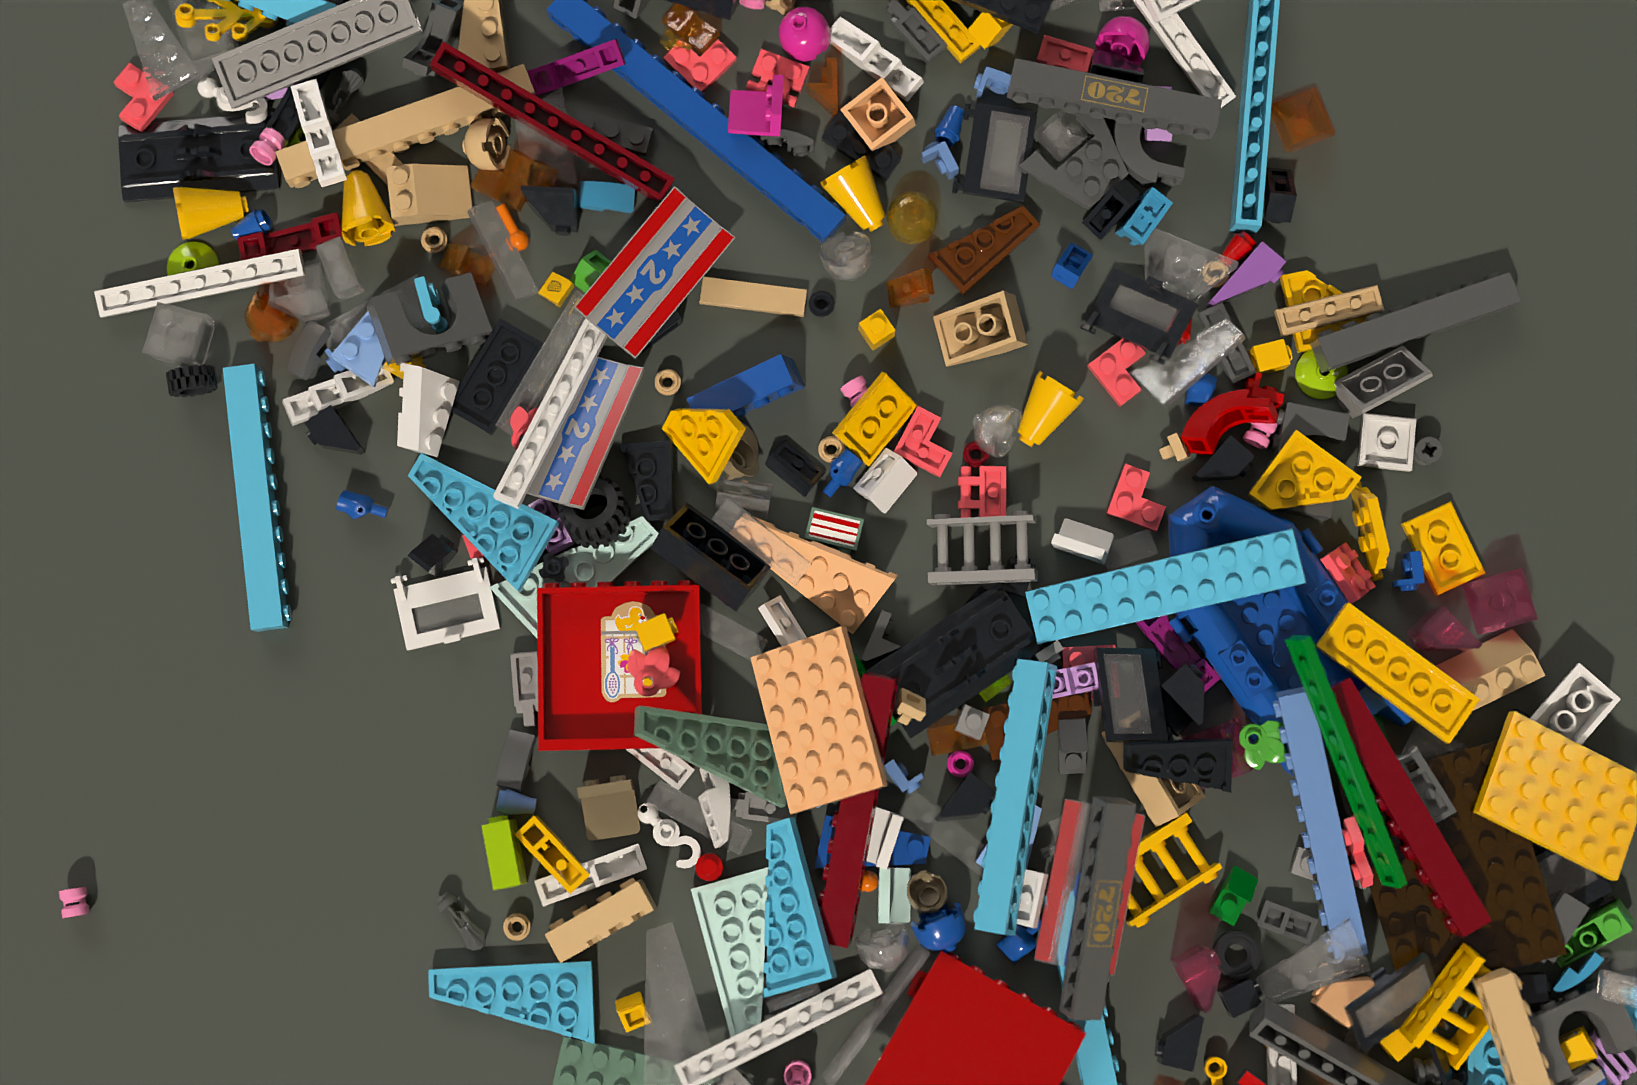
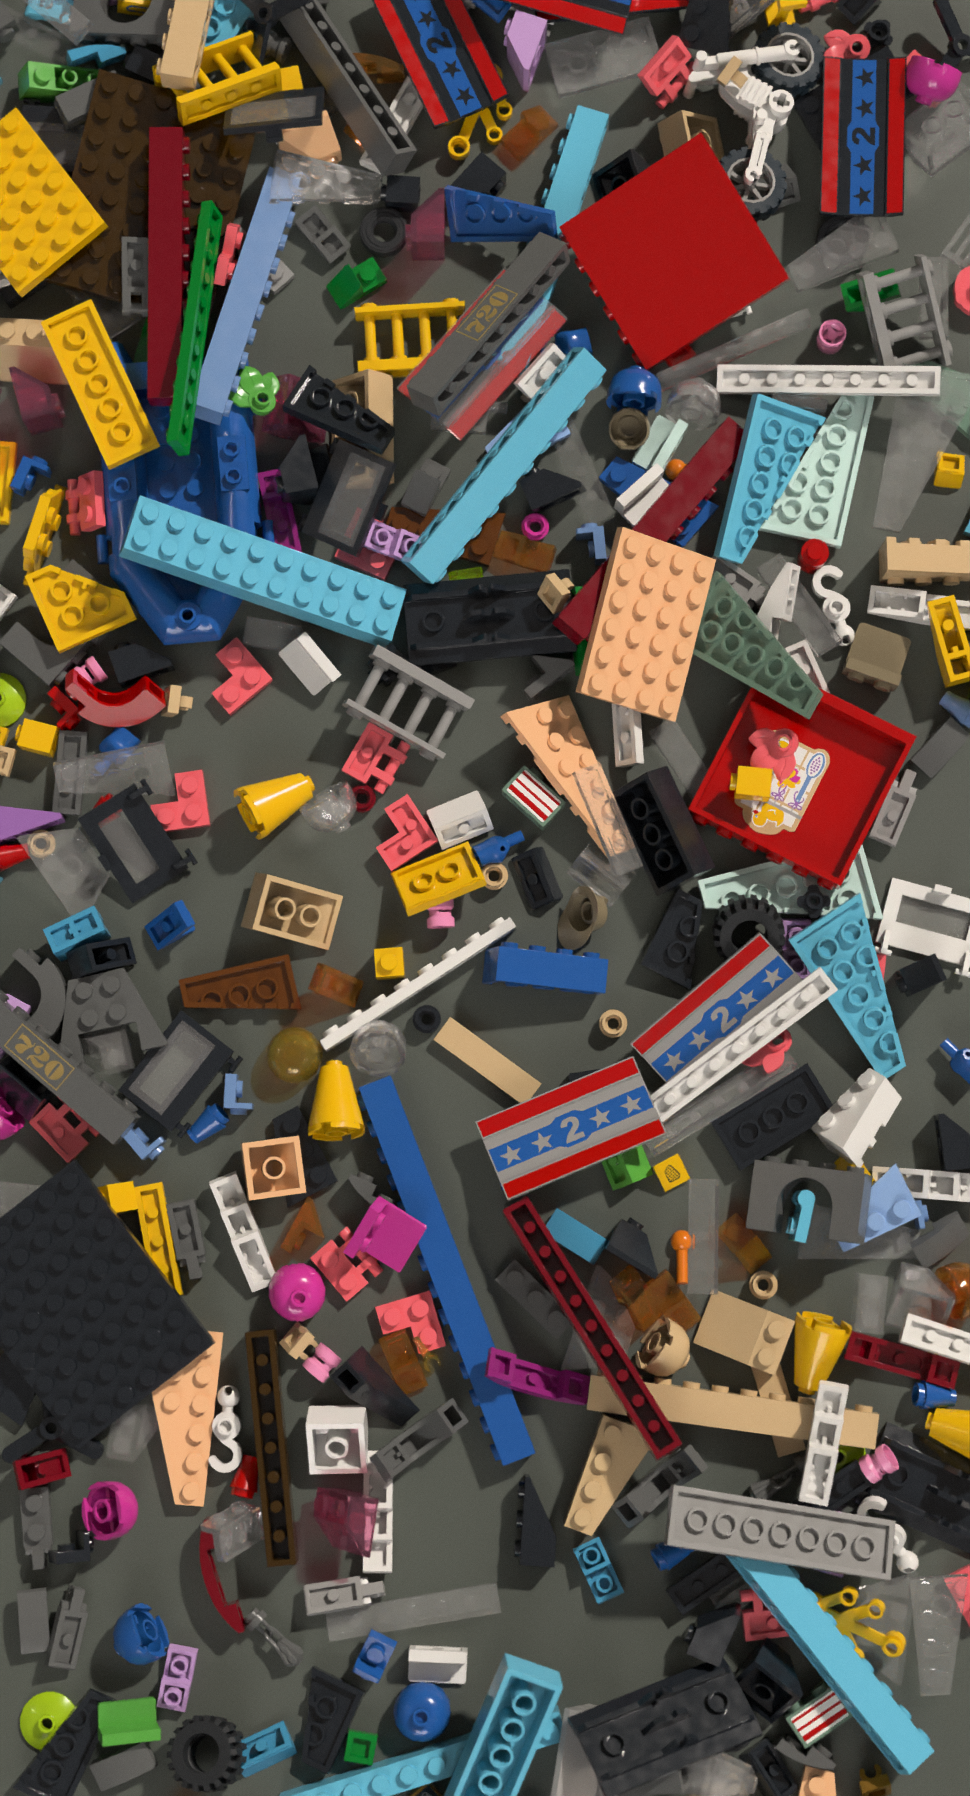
camera: 150 degrees left, 0 degrees up
(705, 438) = (608, 943): yellow plate -> none
(840, 337) = (427, 976): none -> white plate
(971, 722) = (505, 555): light grey plate -> none
(1050, 653) = (400, 577): light grey plate -> none
(1149, 1013) = (494, 219): none -> blue wing

